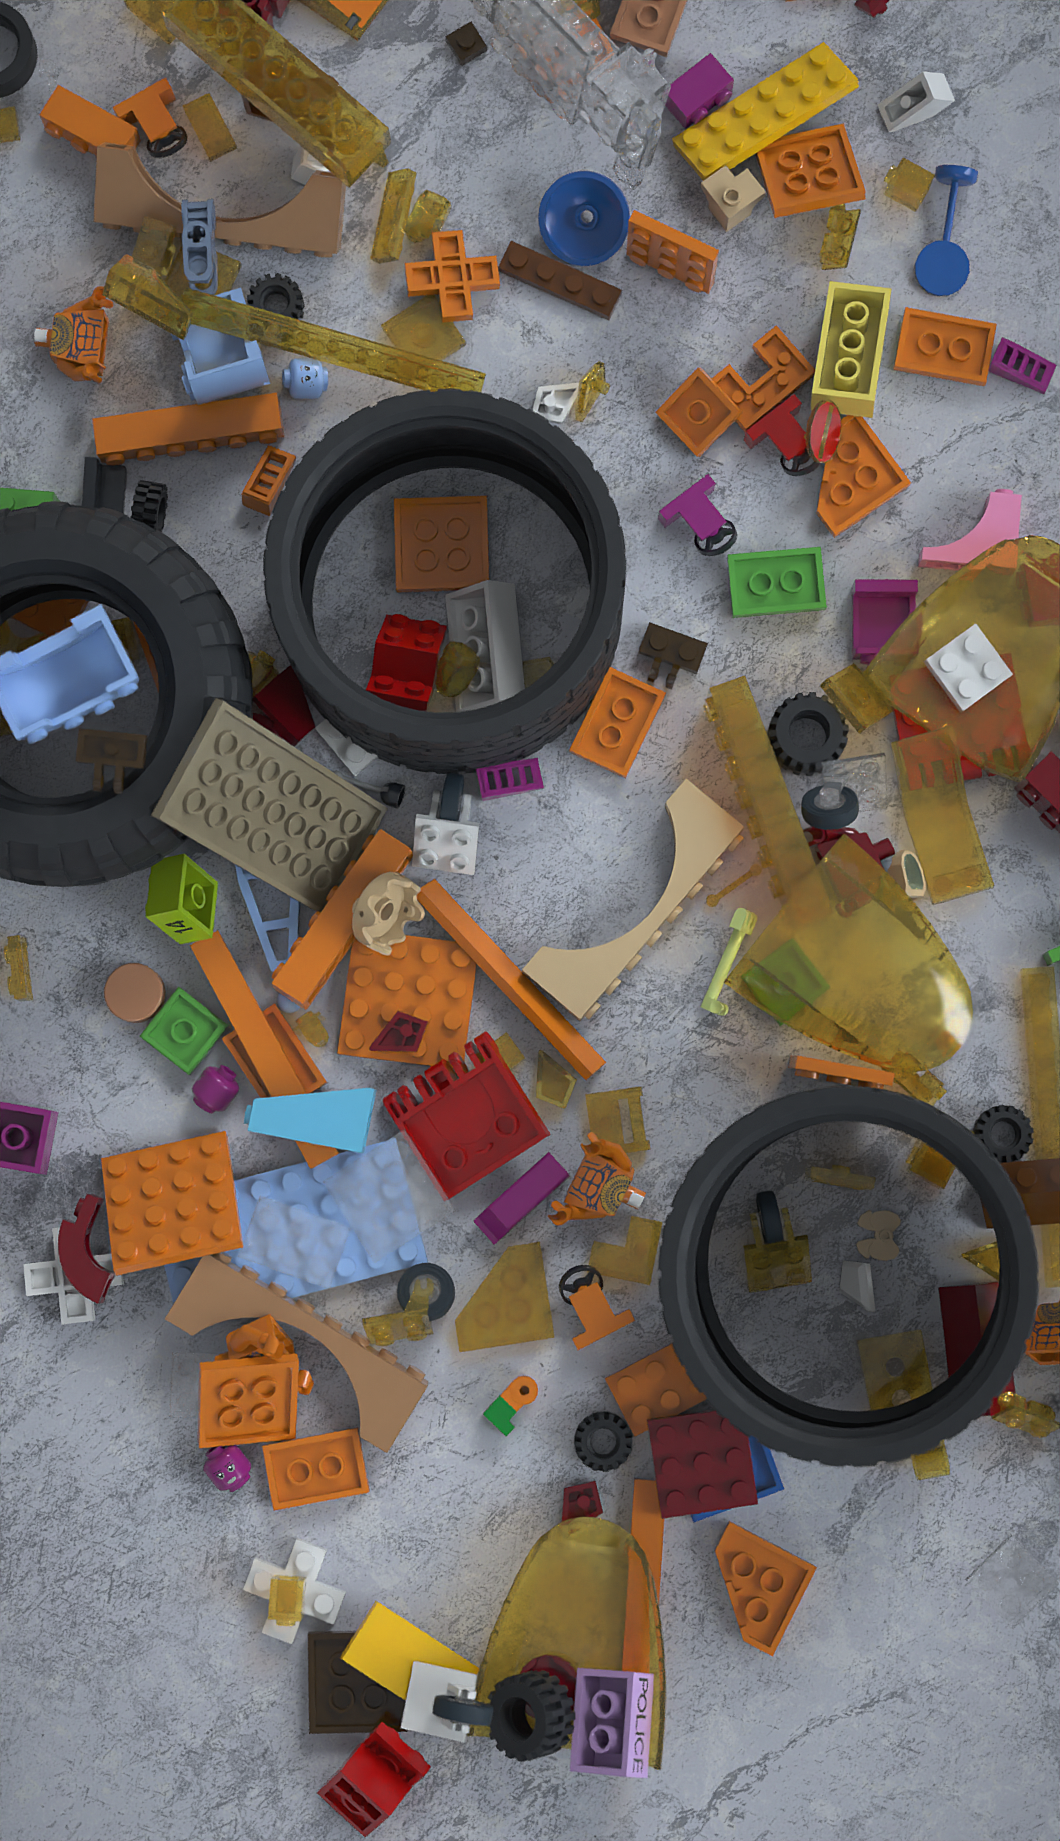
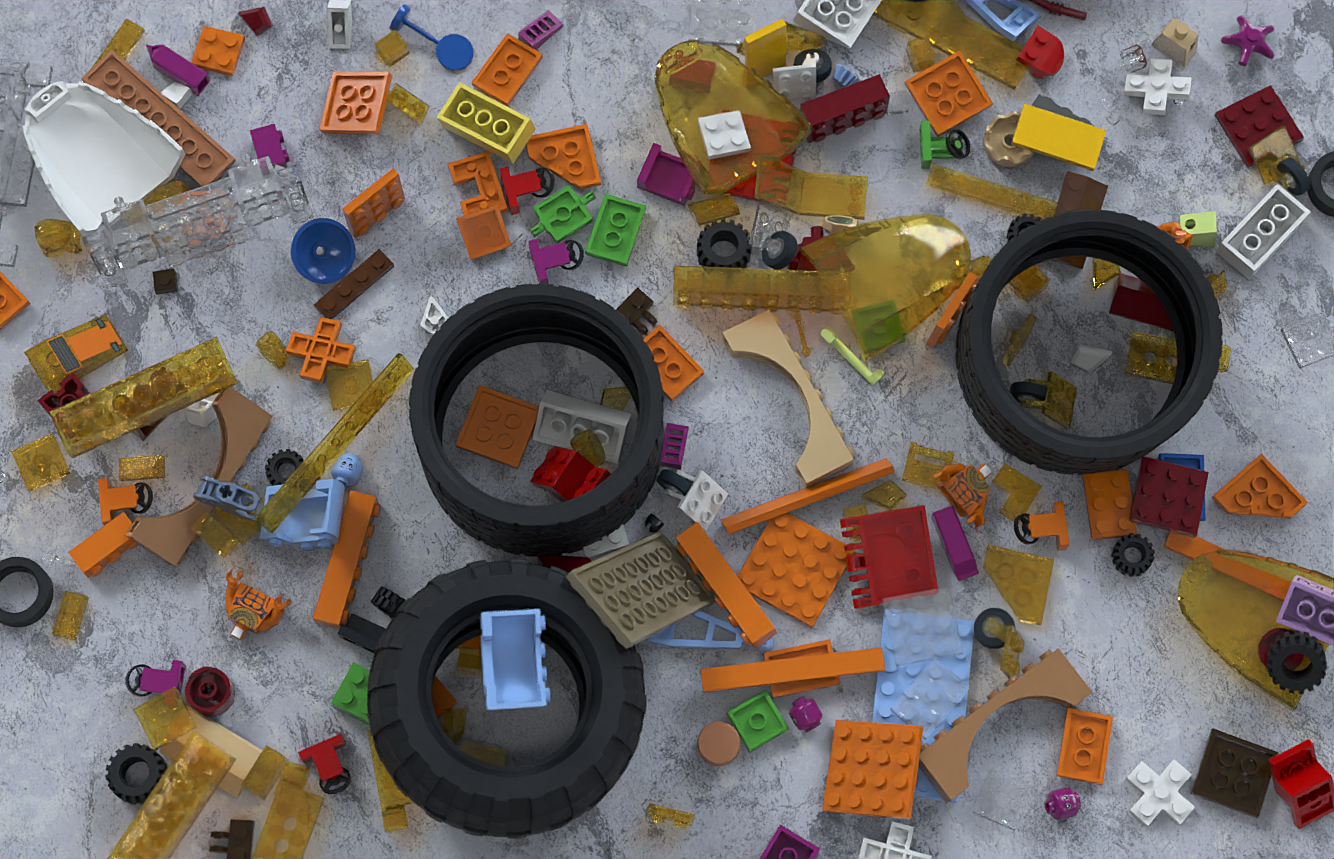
camera: 75 degrees left, 10 degrees down
(76, 1255) = (883, 846): dark red arch -> none
(110, 749) = (571, 657): dark brown hinge -> none
(147, 295) = (249, 543): clear yellow slope -> none
(182, 899) = (672, 682): lime brick -> none
(247, 1400) = (1025, 767): orange plate -> none
(262, 498) = (414, 532): orange slope -> none
(263, 1339) = (996, 745): orange torso -> none
(287, 1599) = (1166, 793): clear yellow brick -> none
(312, 1028) = (792, 631): clear yellow hinge -> none
(321, 1118) = (856, 646): medium azure slope -> none
(384, 910) = (733, 554): tan plate -> none
(390, 1644) = (1236, 730): yellow tile -> none
(393, 216) = (262, 371): clear yellow plate -> none
(400, 1034) = (818, 577): dark red piece -> none
(443, 1702) = (1270, 714): white plate -> none
(519, 1392) = (1086, 603): leg -> none
(581, 1501) = (1167, 585): dark red piece -> none
(589, 389) = (434, 291): clear yellow piece -> none
(731, 196) = (350, 156): tan brick -> none
(766, 112) = (303, 114): yellow plate -> none
(769, 504) = (562, 214): none -> bright green plate
(823, 431) = (534, 158): red piece -> none
(882, 1245) = (1058, 329): tan piece -> none
(997, 523) = (641, 89): bright pink arch -> none

